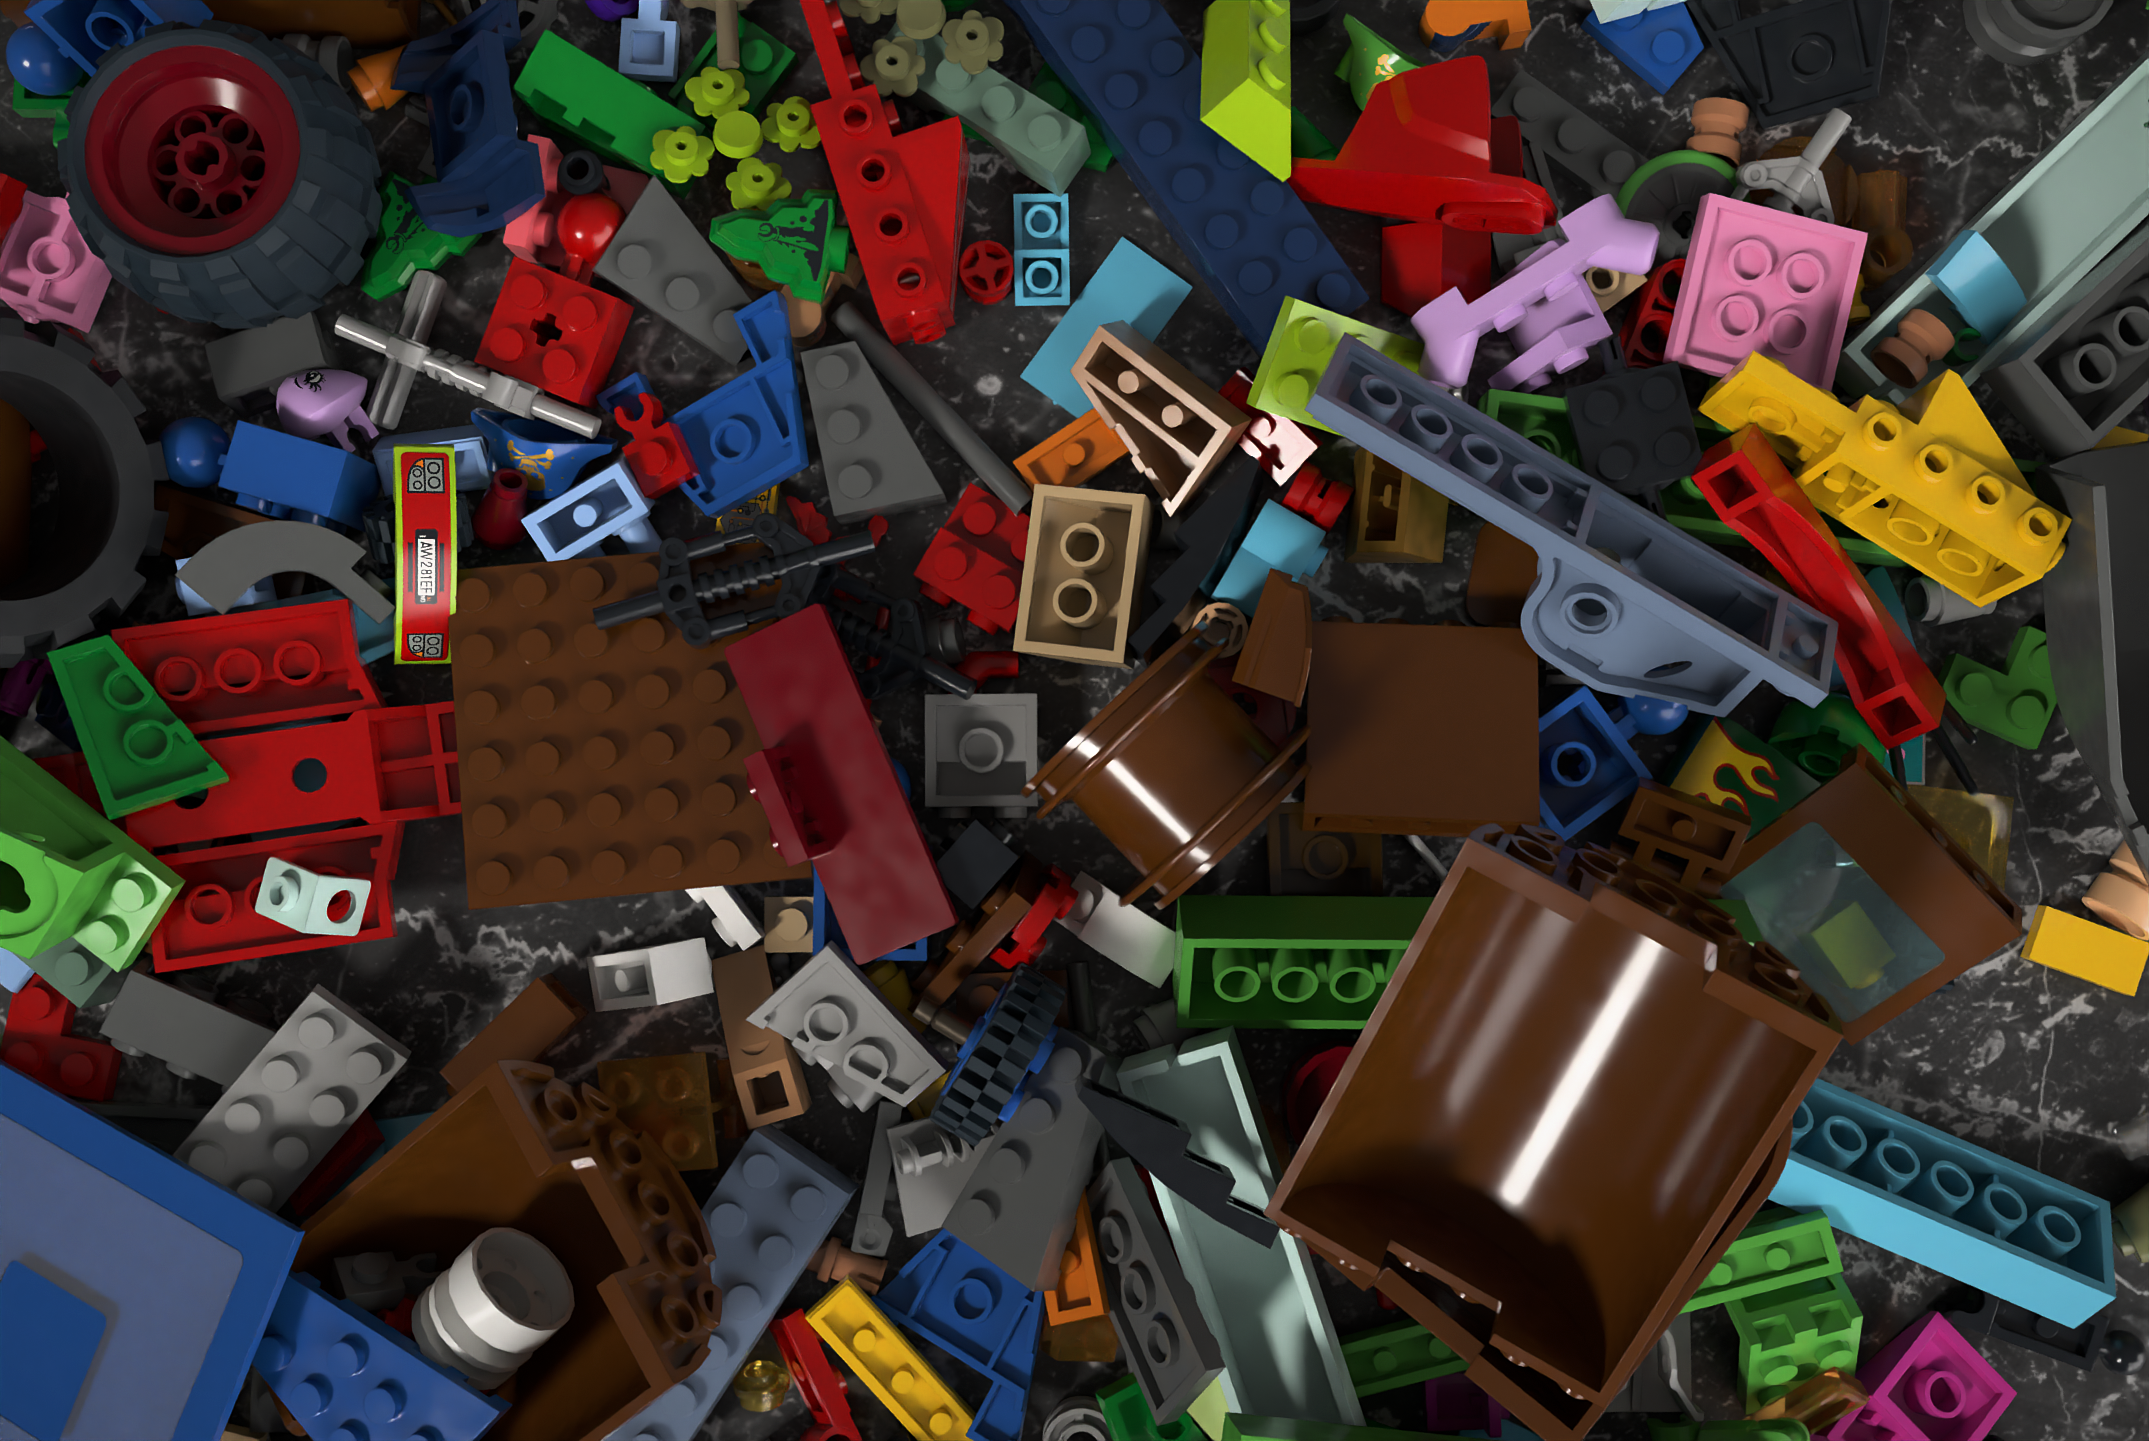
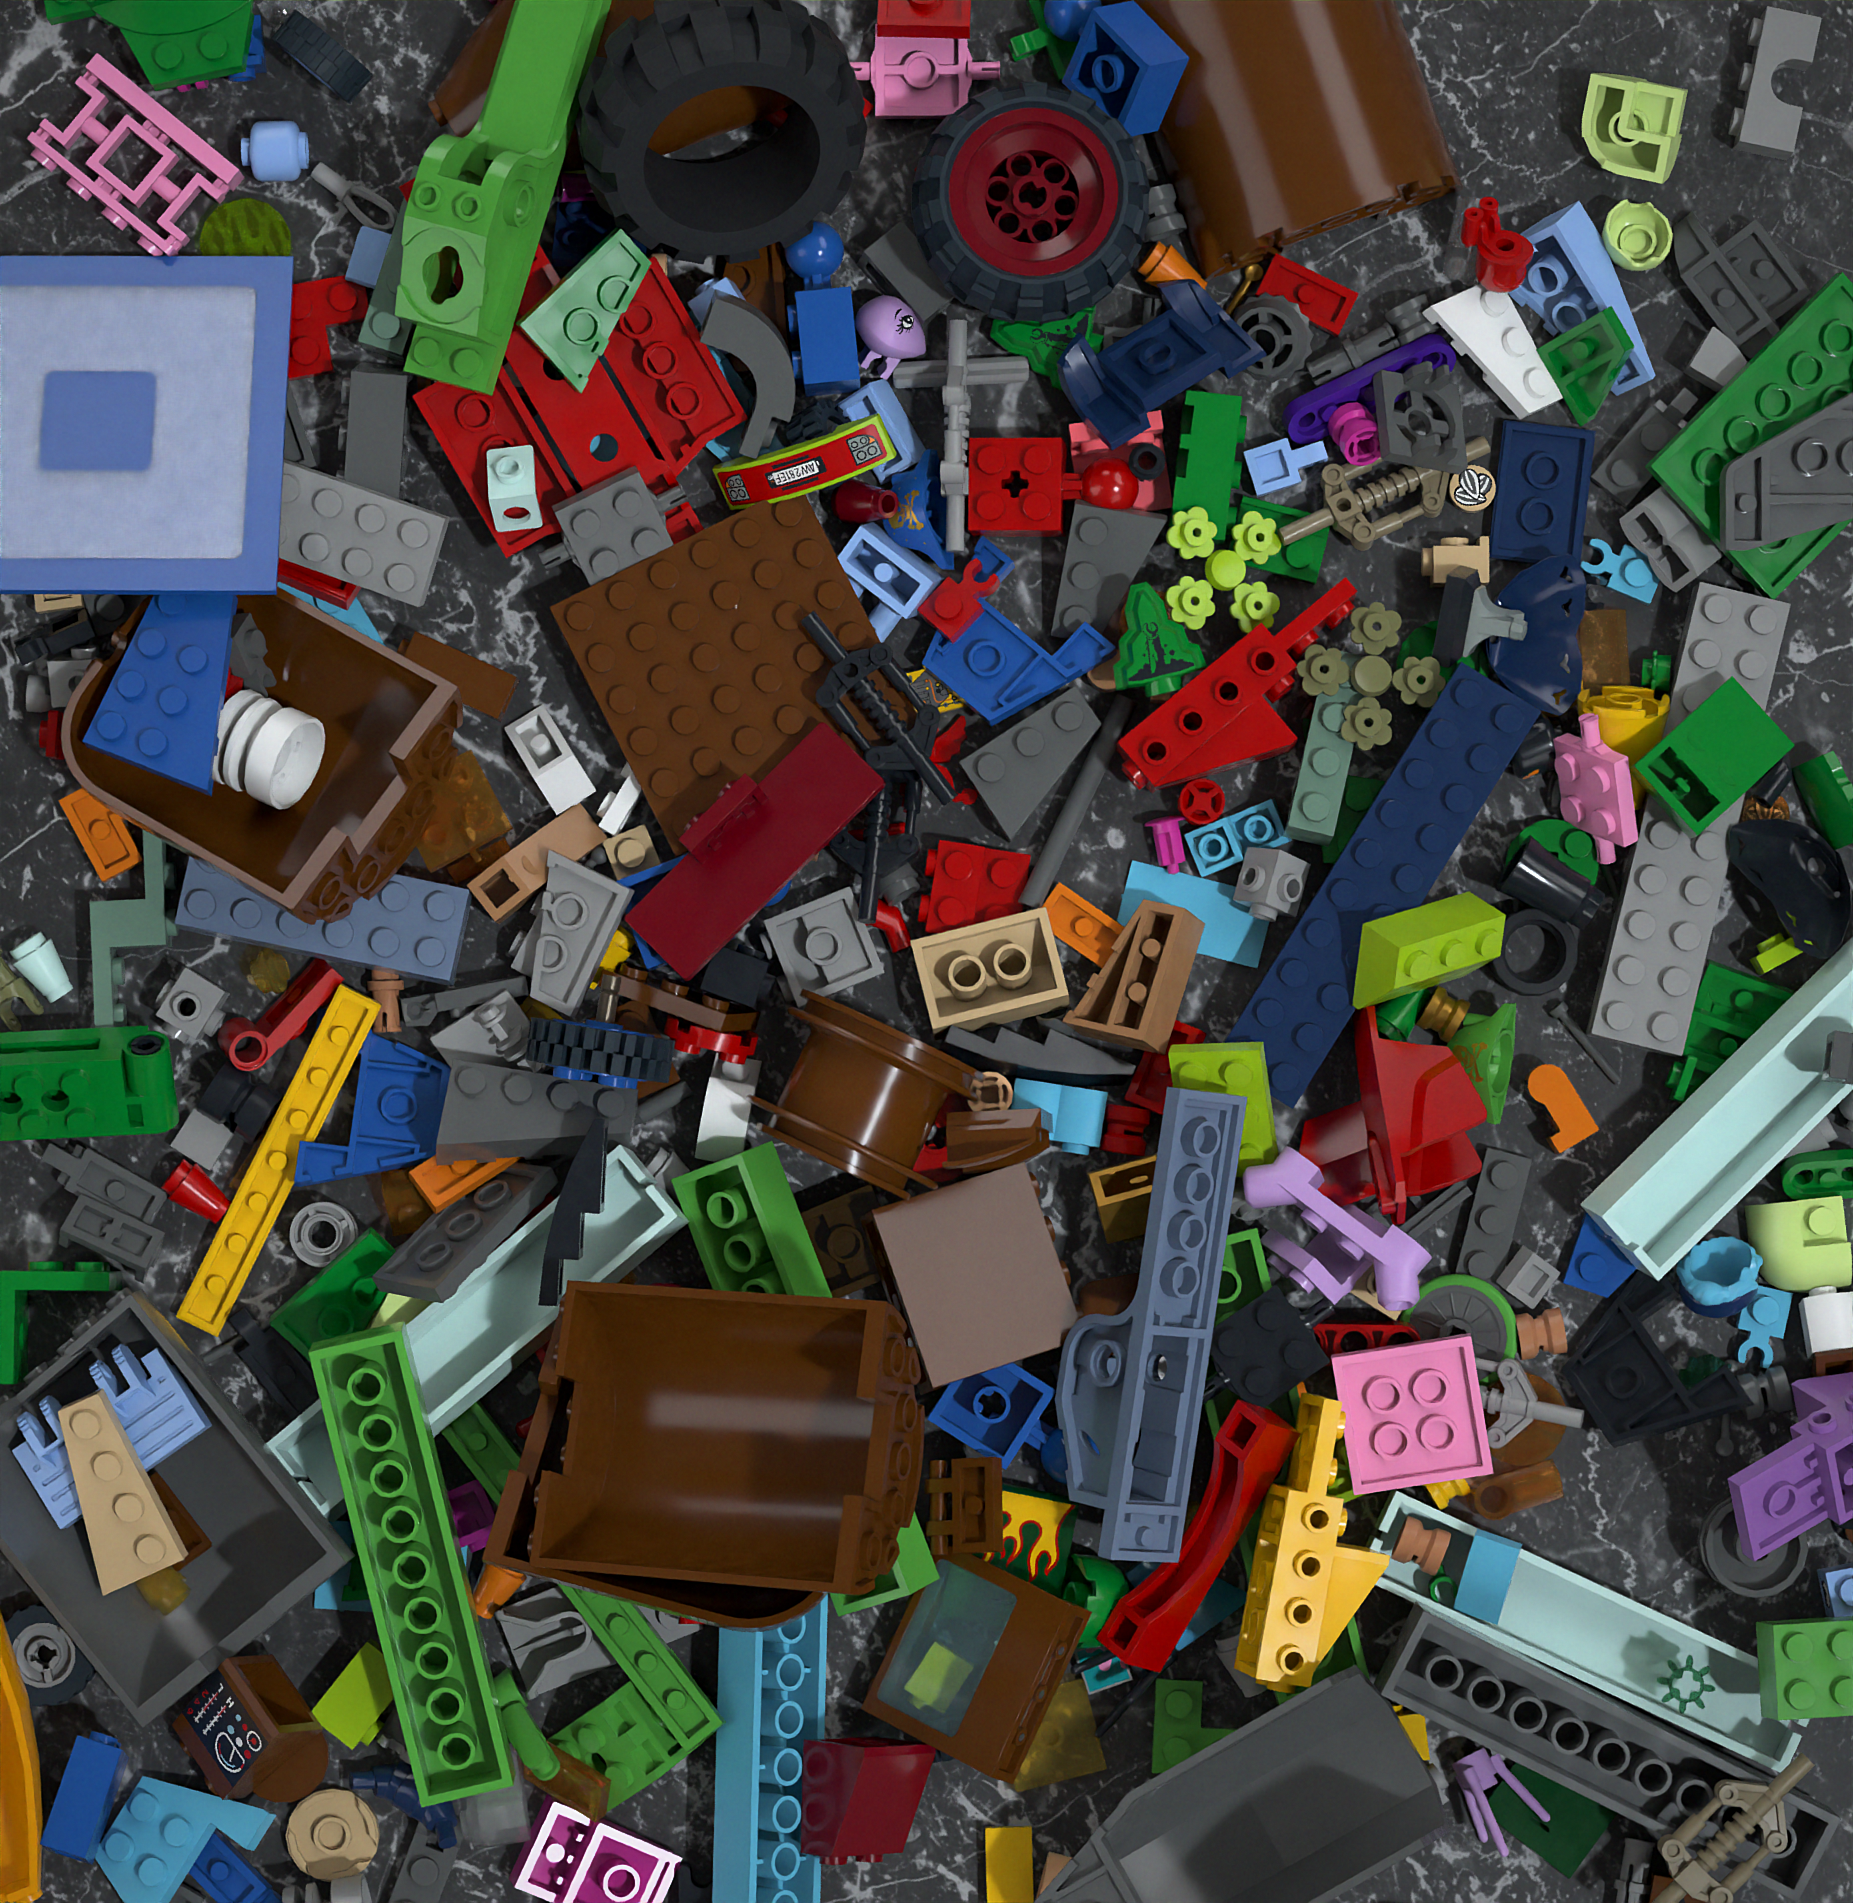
camera: 70 degrees right, 0 degrees up
(403, 800) = (612, 525): none -> dark grey plate
(1016, 326) = (1168, 842): none -> dark pink piece
(1107, 227) = (1271, 883): none -> light grey brick
(1325, 99) = (1443, 1014): none -> pearl gold wheel
(1648, 122) = (1528, 1277): none -> light grey plate
(1952, 1086) = (860, 1796): none -> dark red slope

